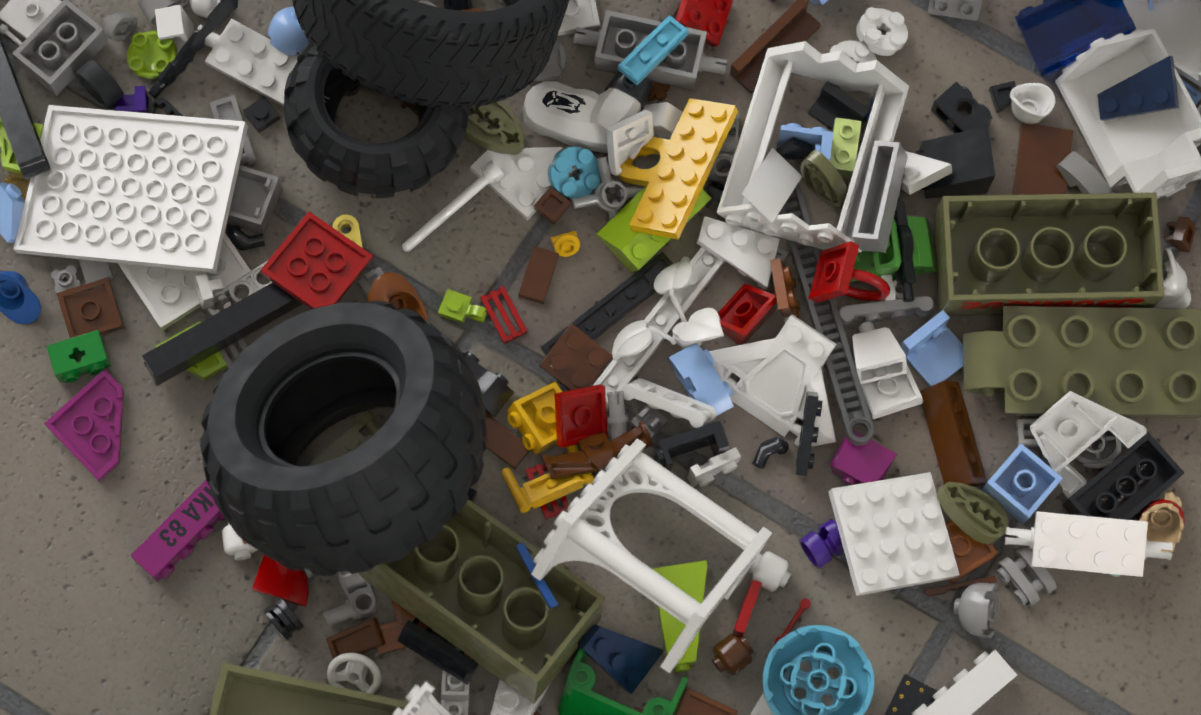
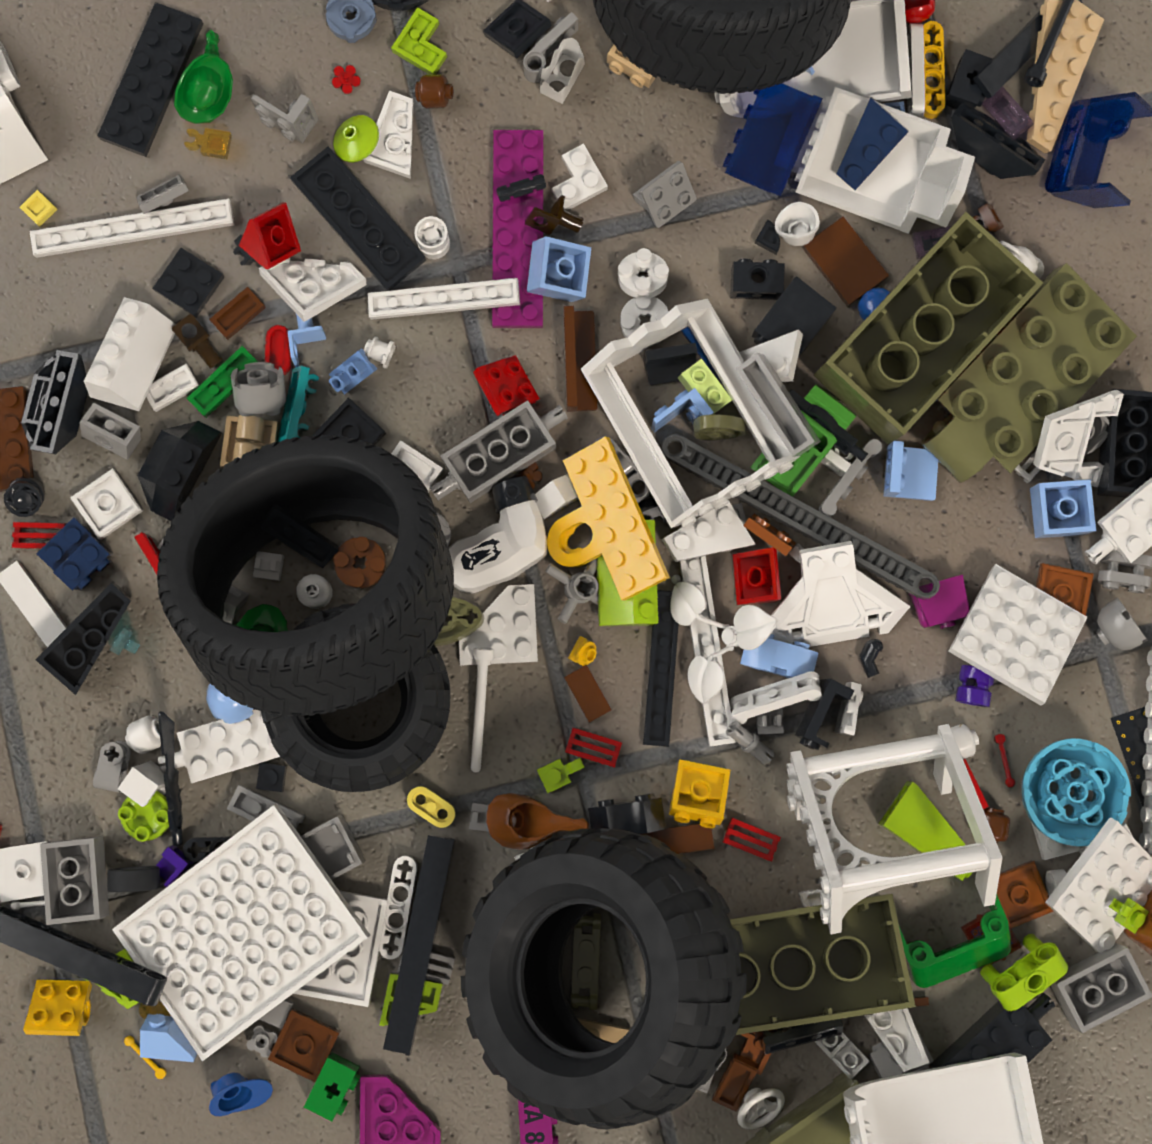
camera: 45 degrees left, 10 degrees up
(119, 25) = (101, 821): light grey plate -> none
(208, 290) = (374, 950): white tile -> none
(242, 240) = (358, 882): black arm -> none
(285, 616) = (673, 1123): black wheel -> none
(316, 263) = (433, 853): red plate -> none
(542, 586) = (858, 936): blue piece -> none
(544, 489) = (755, 837): yellow plate -> none
(552, 205) = (547, 636): reddish brown tile -> none
(562, 164) = (551, 591): medium azure plate -> none
(575, 359) = (678, 730): reddish brown plate -> none
(580, 414) = (726, 768): red plate -> none
(595, 453) = (765, 783): reddish brown plate -> none
(620, 656) = (924, 909): dark blue wing -> none
(627, 139) = (553, 535): white wing -> none
(653, 50) = (506, 453): medium azure tile -> none
(772, 185) = (692, 471): white sticker -> none
(795, 149) = (673, 424): black tile -> none
(808, 433) = (890, 622): black plate -> none
(836, 271) = (802, 491): red tile -> none
(877, 354) = (876, 515): white torso -> none
(891, 395) = (905, 530): white plate -> none
(944, 589) = (1095, 607): reddish brown piece -> none
(952, 434) = (980, 521): reddish brown panel -> none
(968, 498) = (1046, 572): olive piece -> none
(1081, 173) = (880, 243): light grey slope -> none

